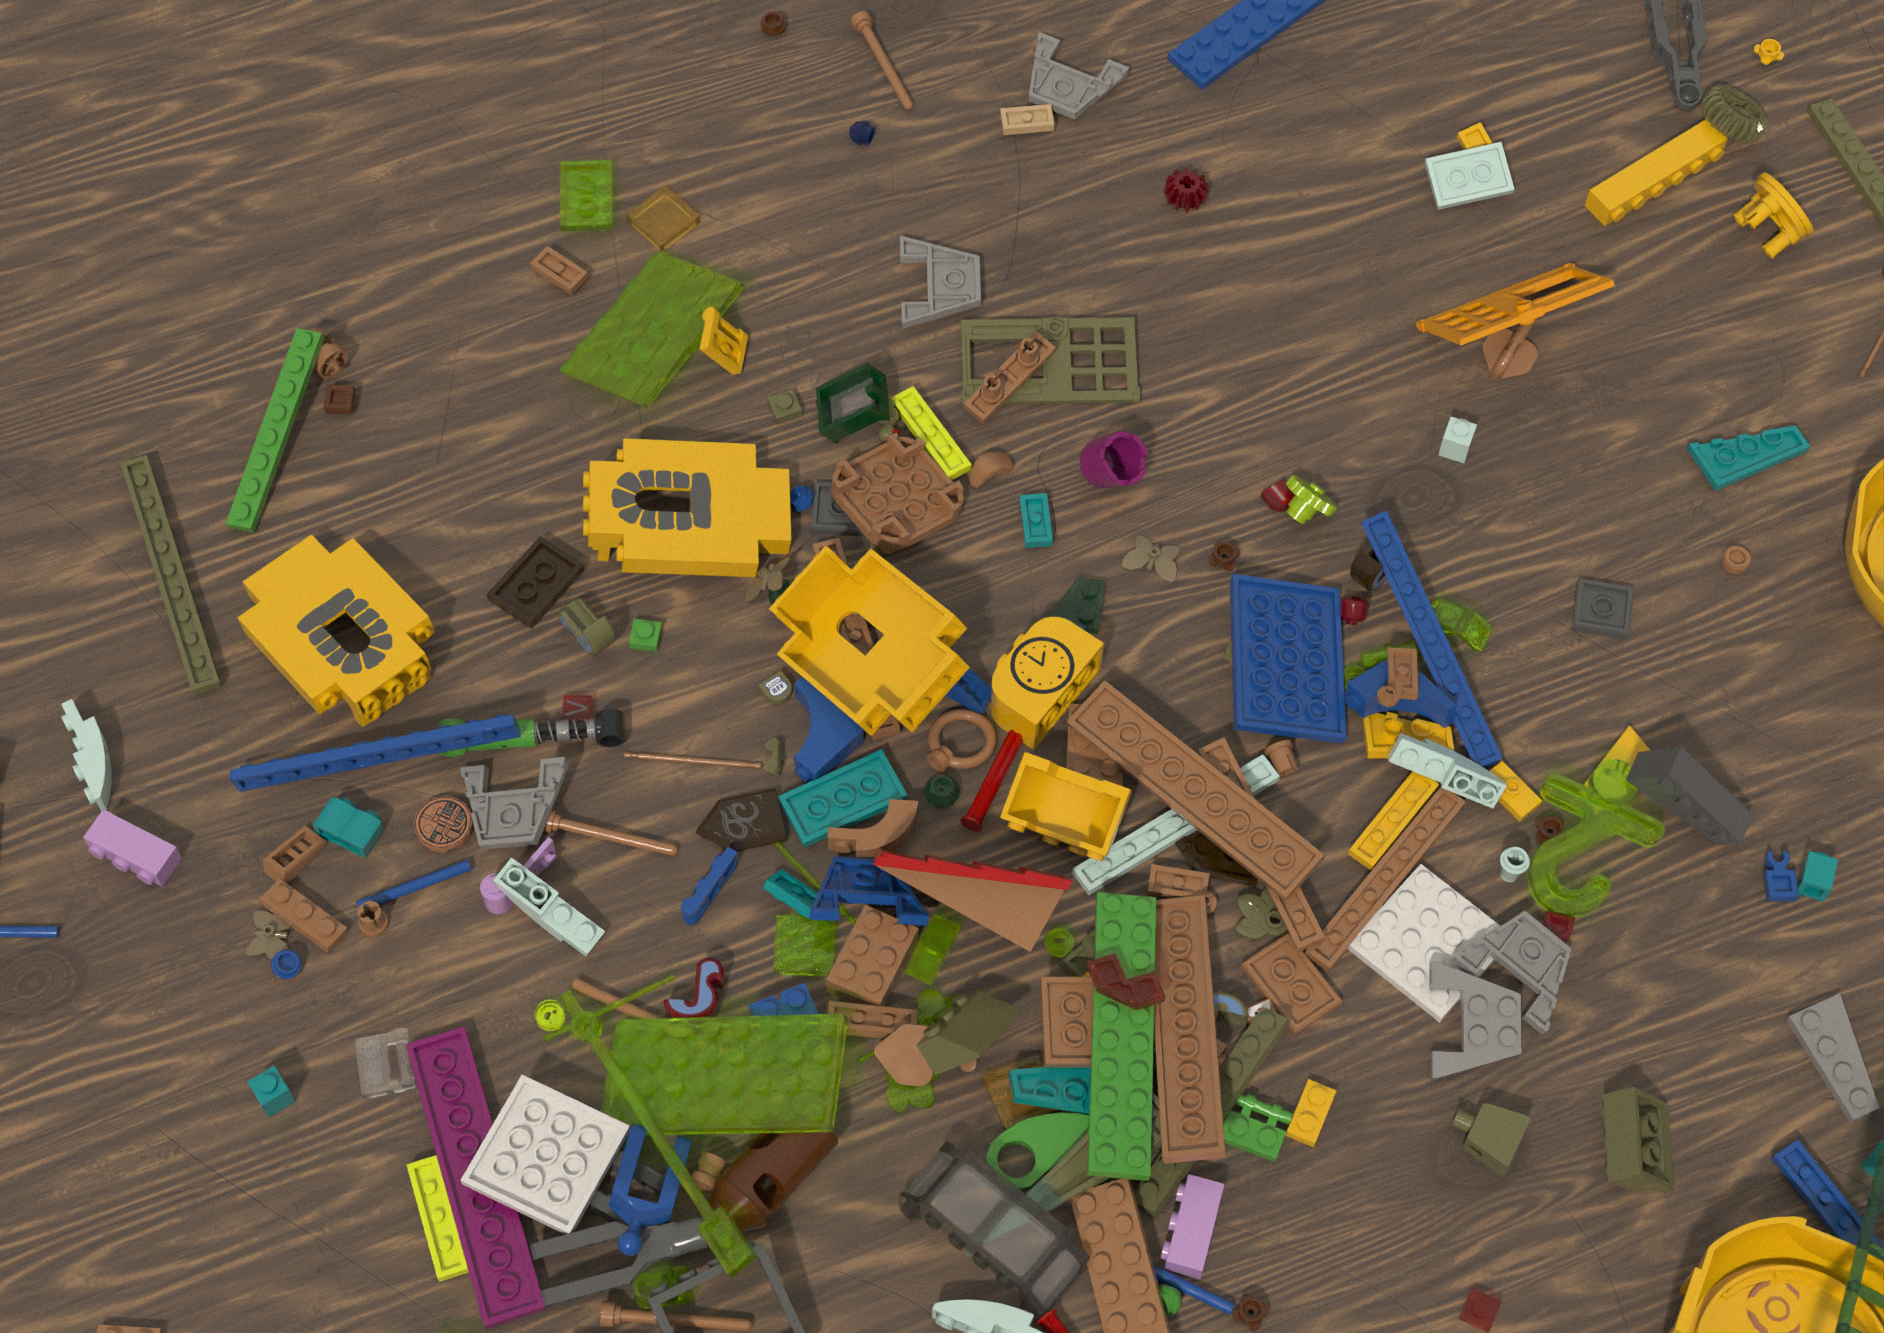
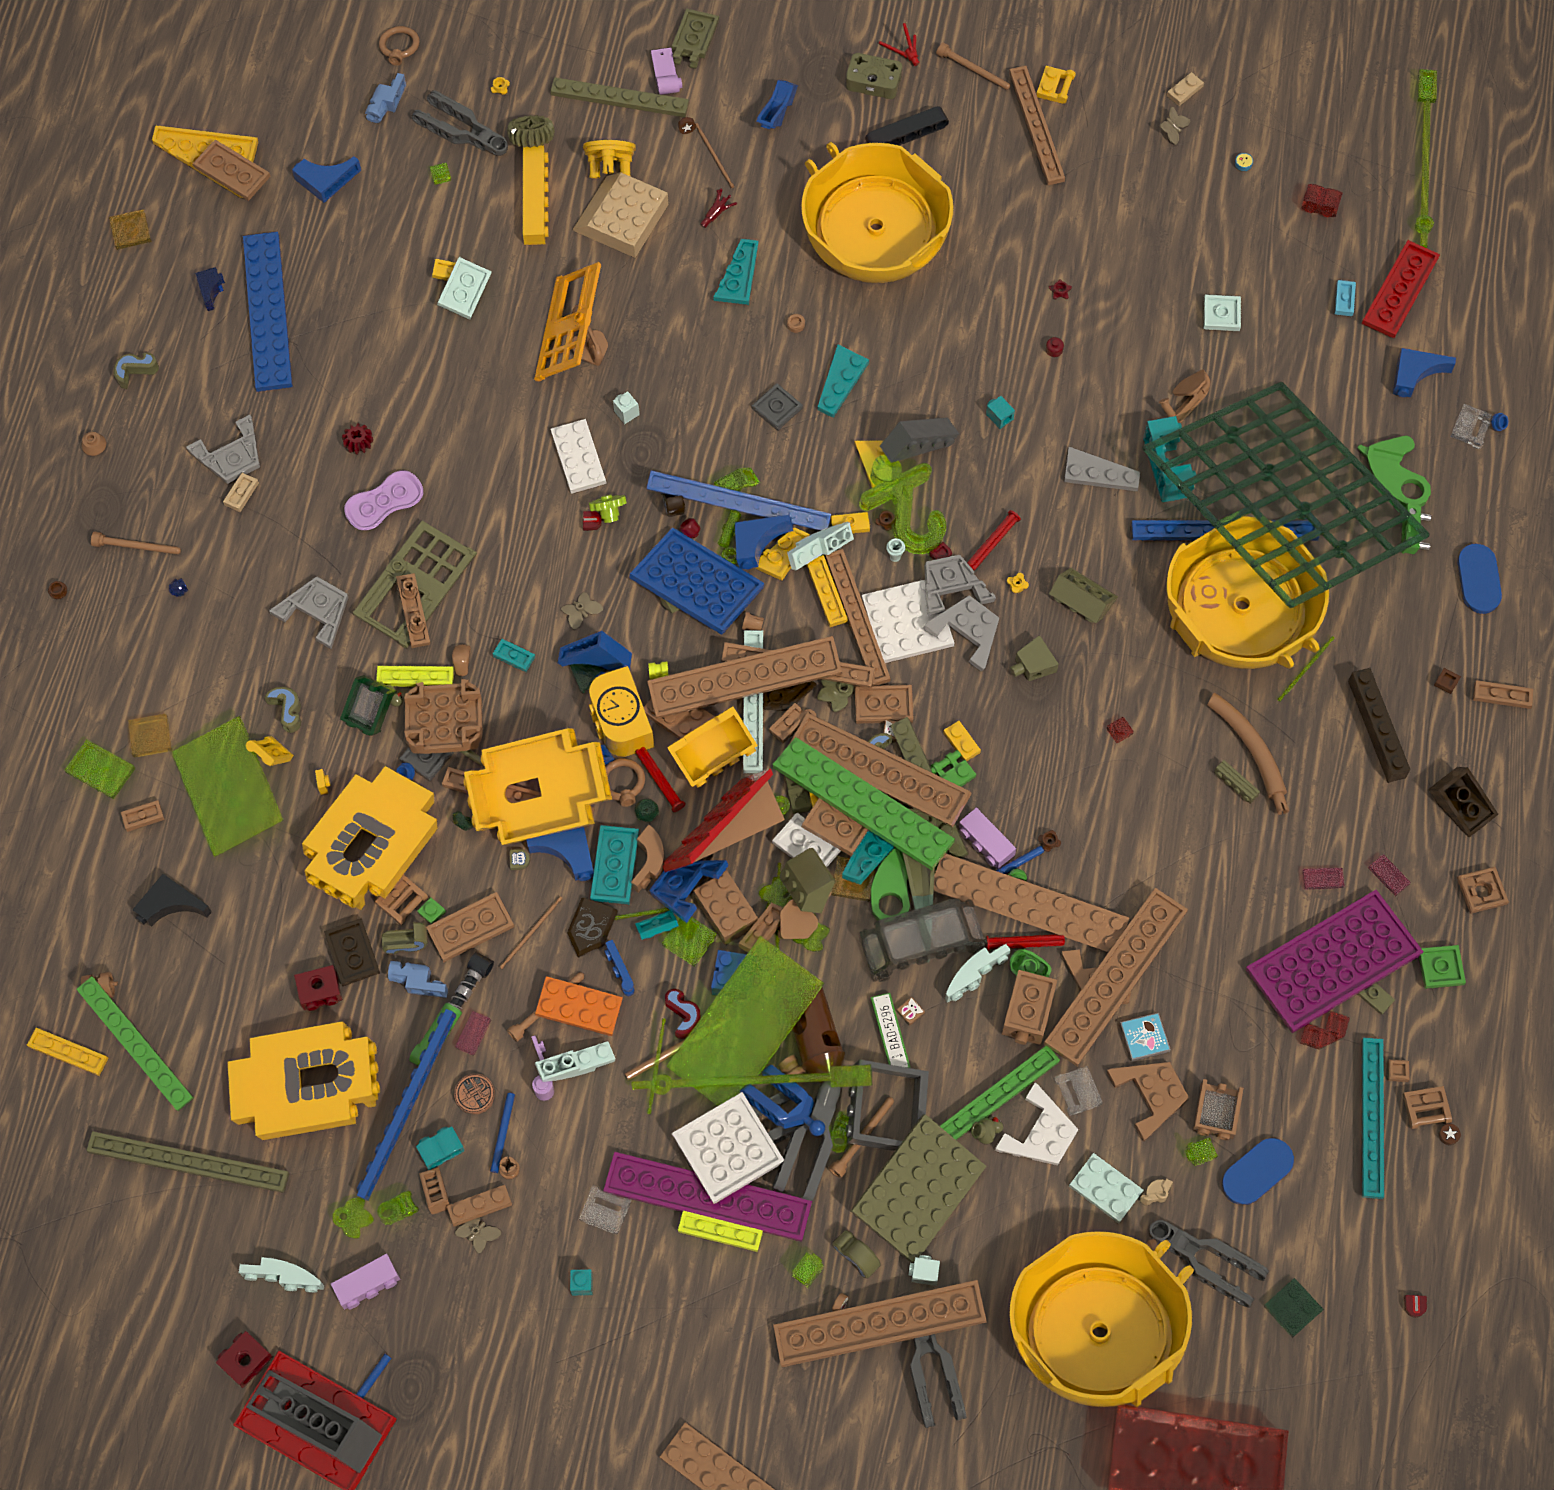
camera: 55 degrees left, 5 degrees up
(206, 790) = (356, 1217): none -> clear neon green plate
(230, 375) = (67, 1051): none -> yellow tile
(248, 829) = (398, 1207): none -> clear neon green piece
(286, 964) = (504, 1232): blue plate -> none
(339, 399) = (137, 995): reddish brown plate -> none
(464, 587) = (328, 994): none -> dark red brick
(471, 352) = (167, 898): none -> black arch
(512, 816) = (499, 1051): light grey wing -> none
(515, 774) = (473, 1033): none -> clear pink tile
(546, 669) = (417, 979): none -> medium blue plate
(549, 1015) = (637, 1102): clear neon green tile -> none
(577, 707) = (453, 977): clear red tile -> none
(629, 870) = (578, 1006): none -> orange plate
(639, 586) = (397, 896): none -> medium nougat plate
(652, 687) = (470, 927): none -> medium nougat plate
(726, 420) = (323, 781): none -> yellow plate
(769, 577) = (446, 819): dark tan piece -> none
(773, 764) = (566, 889): olive piece -> none
(784, 406) = (335, 745): olive plate -> none
(793, 332) = (290, 706): none -> olive animal
(840, 1268) = (890, 1030): none -> white tile
(886, 1276) = (910, 1011): none -> tile
(933, 948) = (741, 872): clear neon green slope -> none
(1021, 989) = (795, 840): none -> white plate
(1105, 605) = (596, 650): none -> blue arch
(1109, 256) = (370, 508): none -> lavender plate
(1114, 460) = (511, 589): magenta cylinder -> none
(1133, 992) = (833, 788): clear red tile -> none
(1134, 689) = (658, 670): none -> neon yellow wheel
(1227, 549) = (608, 567): reddish brown plate -> none
(1352, 430) = (578, 456): none -> white plate
(1401, 677) = (754, 530): medium nougat hinge -> none
(1589, 1055) = (1016, 588): none -> yellow plate
(1599, 64) = (440, 173): none -> clear neon green plate
(1626, 979) = (994, 539): none -> red axle
(1705, 658) = (841, 379): none -> teal wing
(1716, 281) = (623, 213): none -> tan slope
(1778, 881) = (990, 431): blue plate -> none
(1811, 375) = (717, 208): none -> dark red piece

